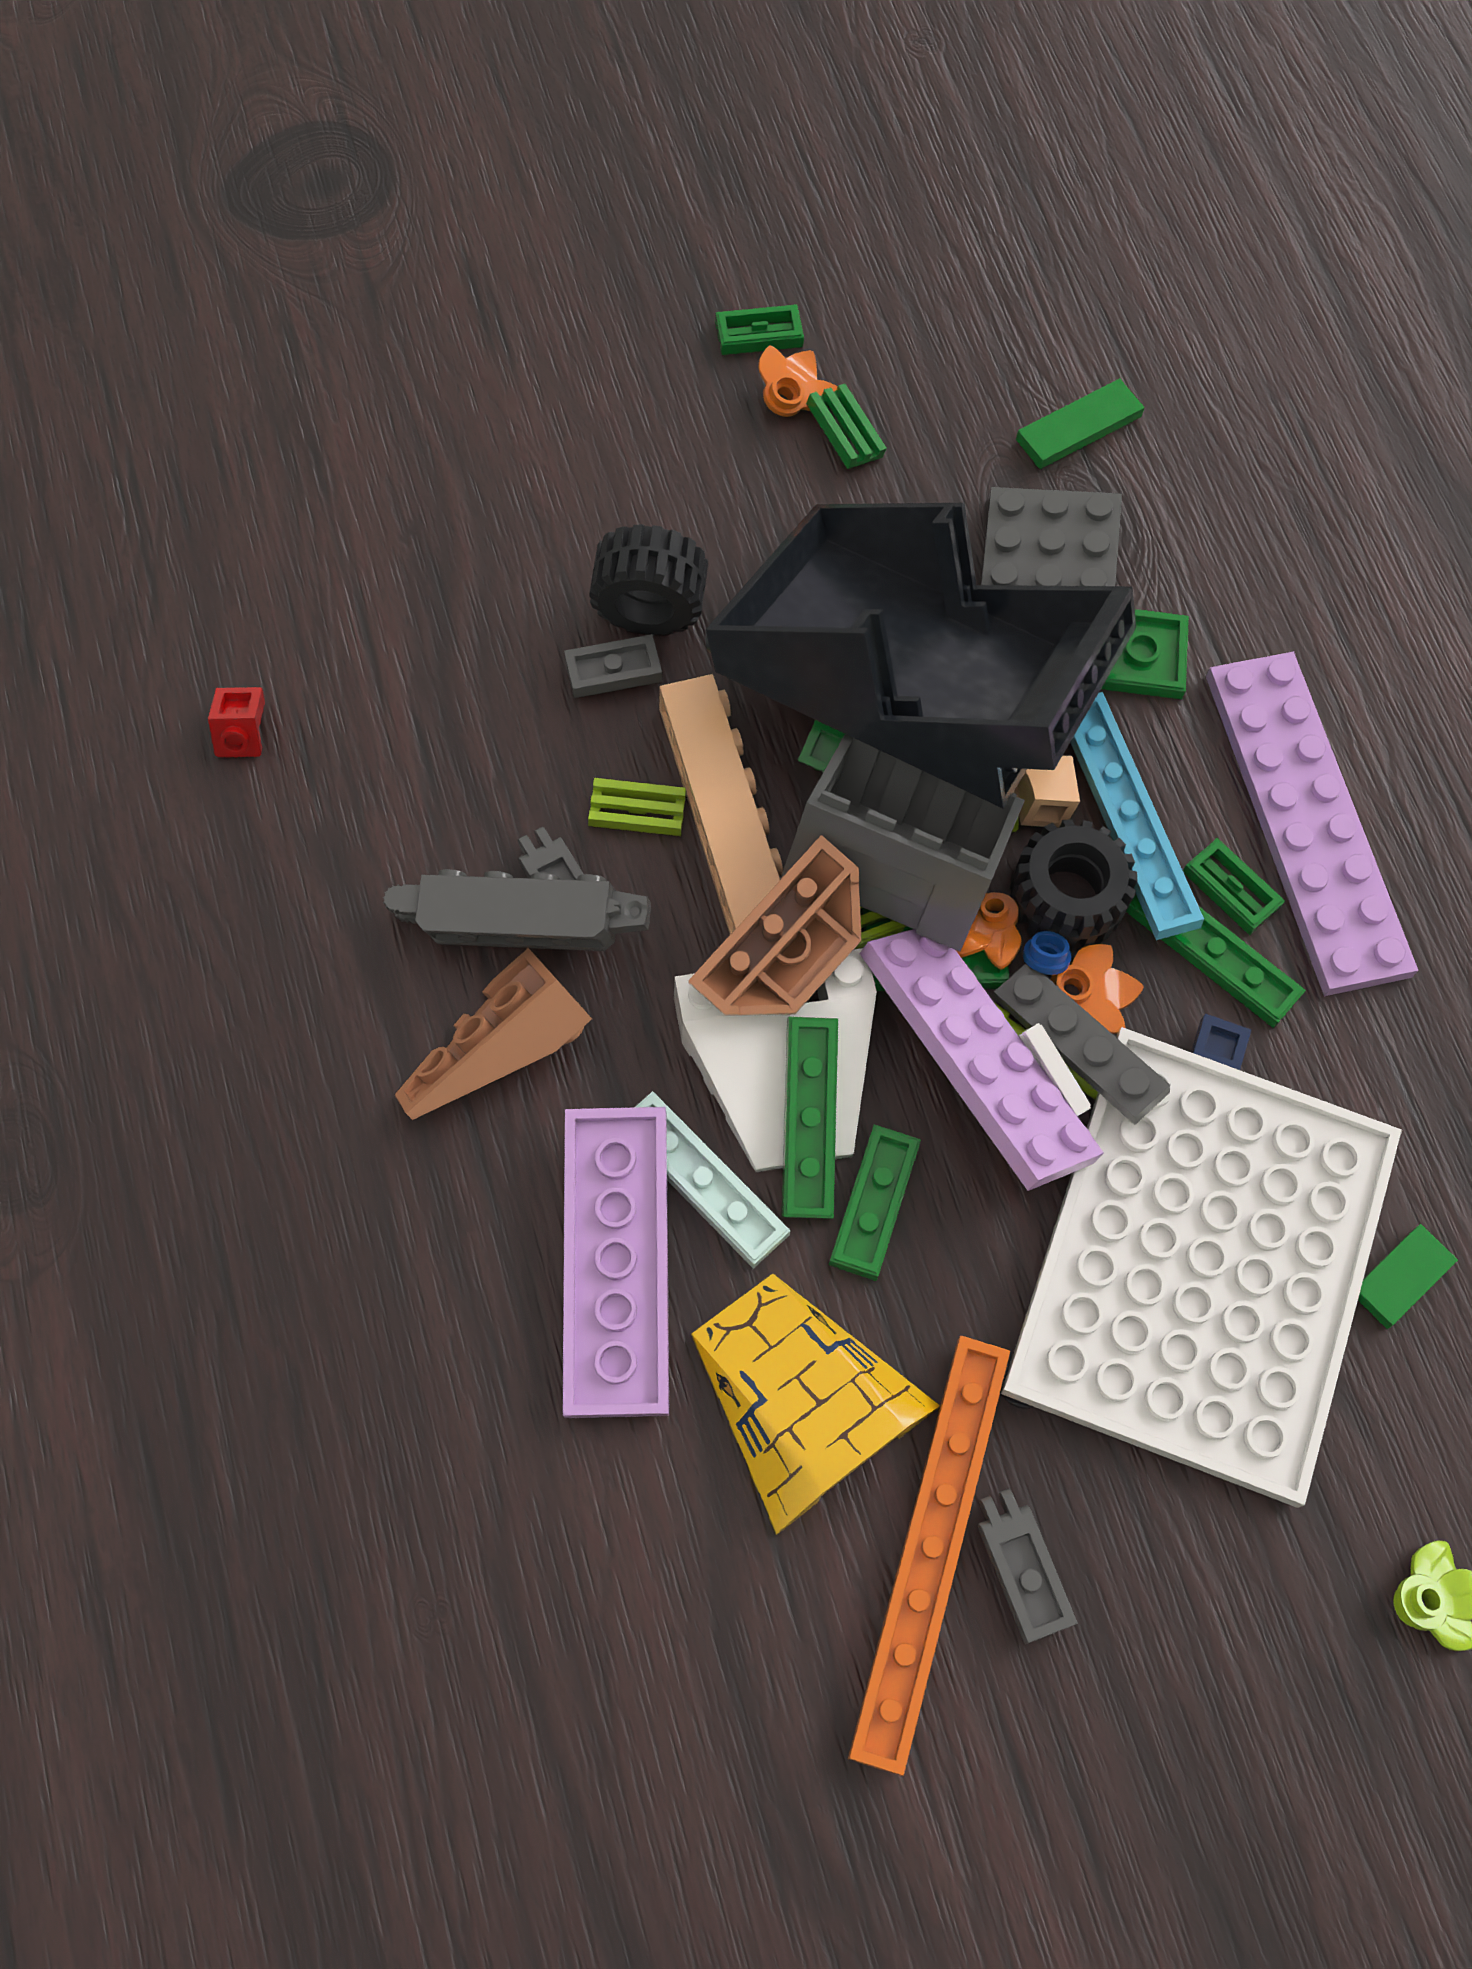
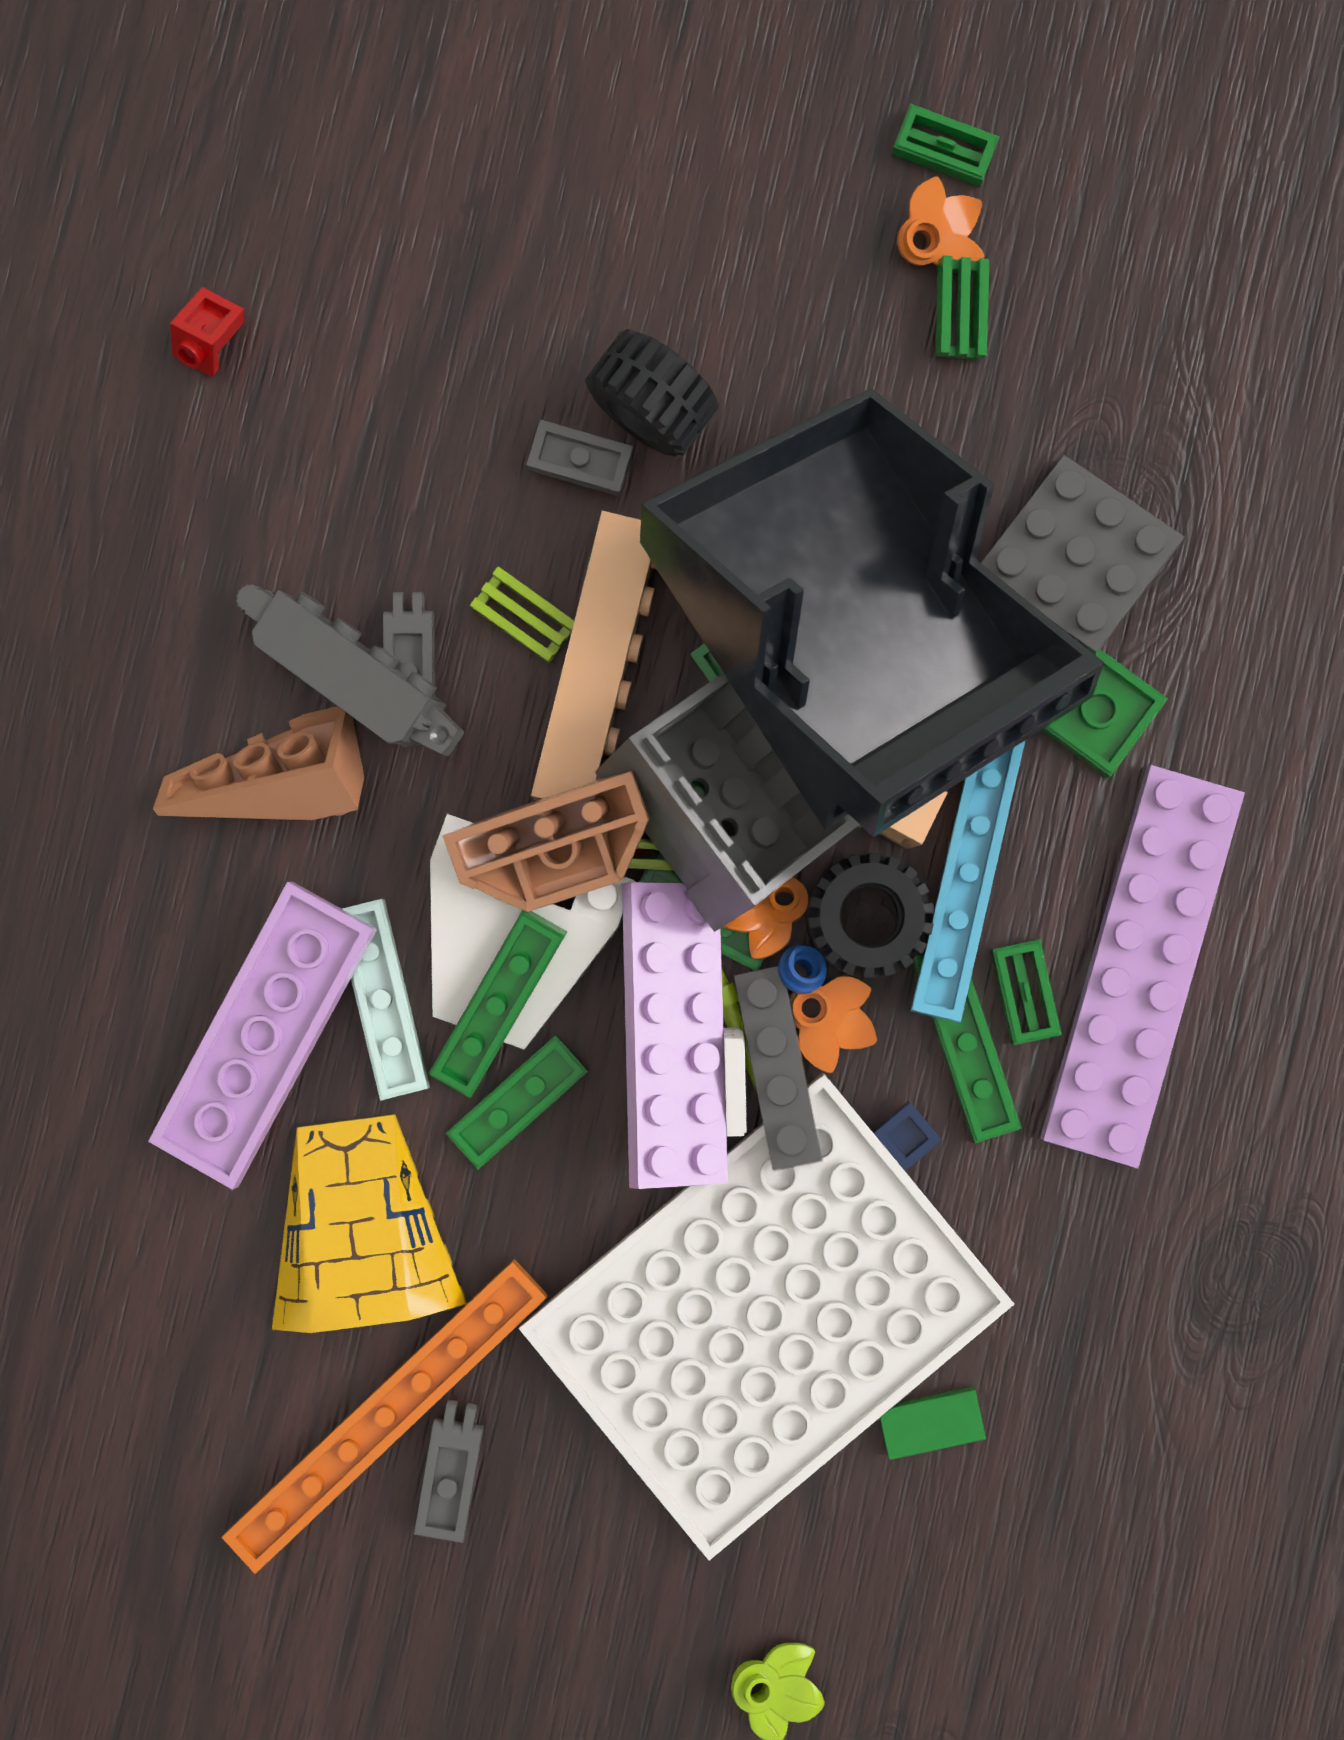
camera: 40 degrees right, 20 degrees up
(1079, 423) = (1204, 427): green tile -> none

